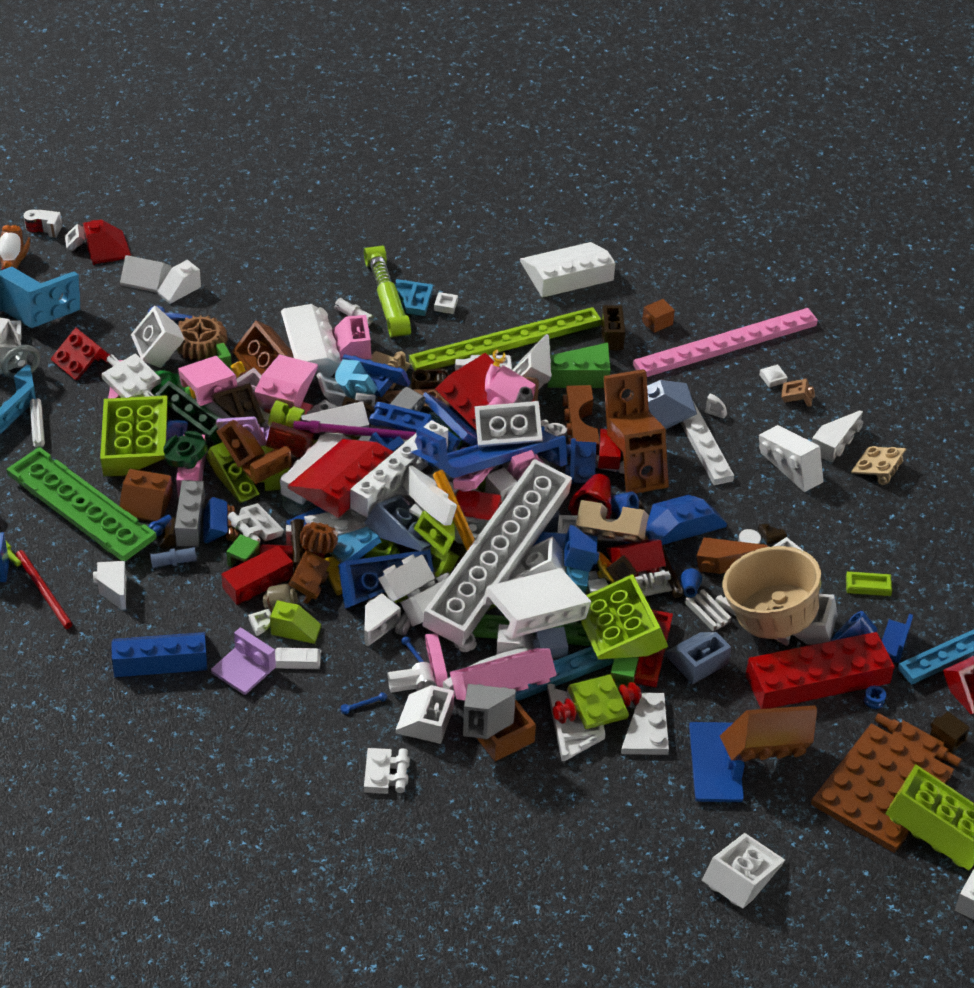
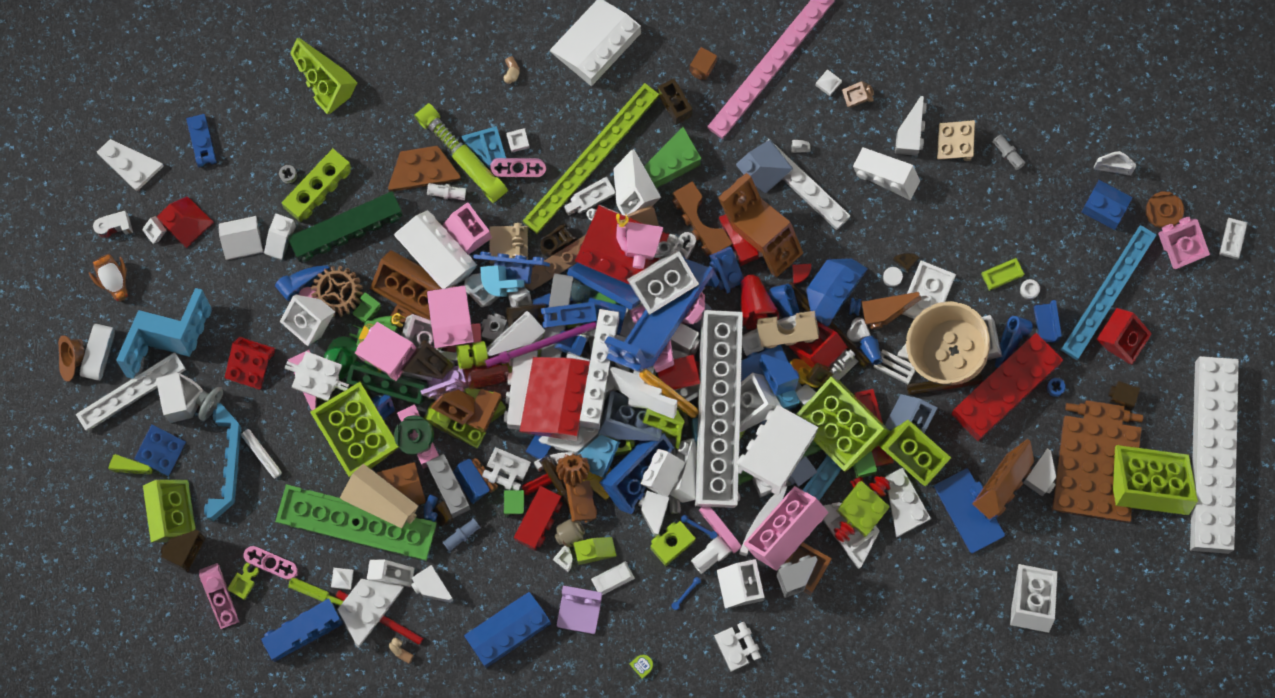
camera: 25 degrees left, 30 degrees up
(33, 544) = (342, 578): none -> white tile
(38, 571) = (367, 606): none -> white wing
(39, 623) = (399, 652): none -> arm
(80, 554) = (390, 572): none -> white slope
(92, 193) = (129, 164): none -> white wing
(114, 482) = (378, 497): none -> tan slope
(165, 201) = (201, 140): none -> blue plate
(224, 253) = (291, 179): none -> light grey bush
(240, 262) = (331, 161): none -> lime brick
(240, 297) = (345, 226): none -> dark green brick
(274, 742) = (642, 665): none -> tile
(305, 201) = (328, 80): none -> lime wedge
(341, 285) = (420, 167): none -> dark orange wing
(378, 652) = (666, 553): none -> lime brick
(434, 326) = (504, 171): none -> bright pink beam
(474, 259) = (513, 72): none -> tan arm
(655, 497) = (800, 272): none -> red tile
(683, 673) = (915, 452): none -> lime slope
(687, 562) = (858, 330): none -> white tile
(693, 544) = (855, 306): none -> blue bush
(749, 643) = (929, 386): none -> dark brown axle
(814, 761) = (1042, 475): none -> white slope
(891, 607) = (1029, 289): none -> white tile
(929, 491) = (1008, 152): none -> light grey pin

